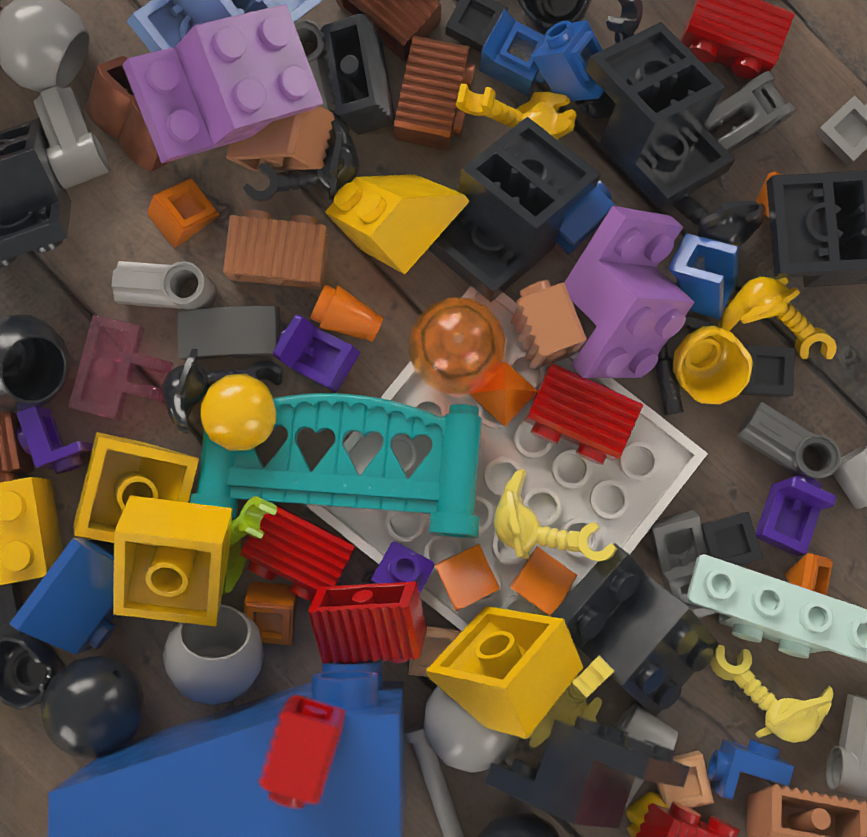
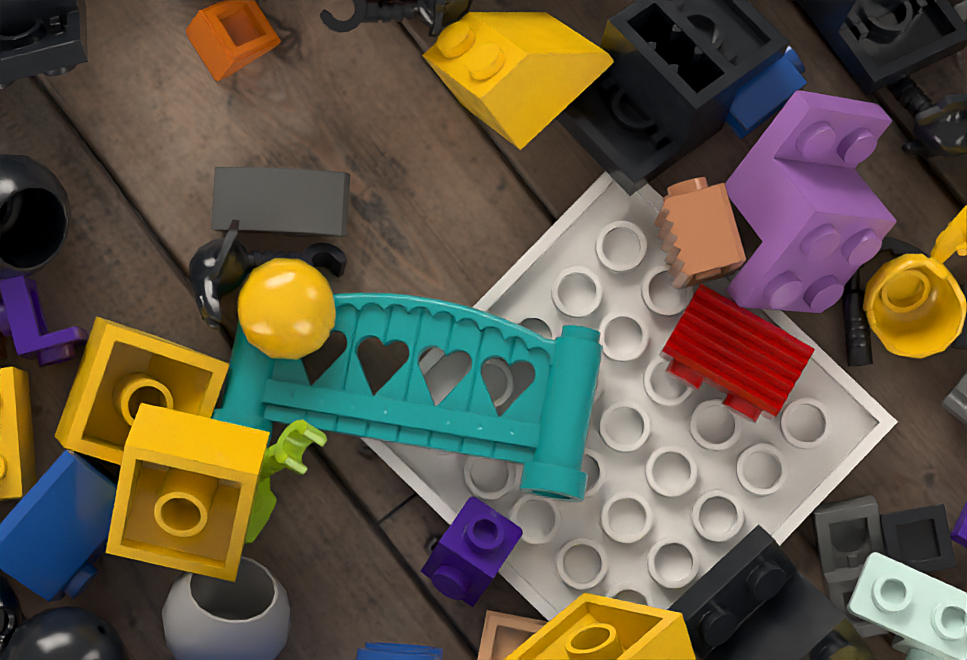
camera: 15 degrees right, 0 degrees up
(108, 369) = (118, 234): clear pink hinge -> none
(161, 285) = (195, 131): light grey piece -> none
(272, 610) = (306, 572): orange slope -> none
(276, 250) = (354, 99): nougat brick -> none
(298, 553) = (348, 500): red brick -> none
(315, 354) = (392, 241): dark purple bracket -> none
(345, 314) = (437, 192): orange cone -> none
(368, 622) = (431, 596): red brick -> none
(454, 365) = (576, 276): clear orange helmet -> none
(467, 577) = (564, 552): orange slope -> none
(504, 394) = (635, 316): orange slope -> none
(521, 530) = (639, 495): light yellow piece -> none
(543, 581) = (663, 566): orange slope -> none
(706, 273) = (918, 184): blue window -> none

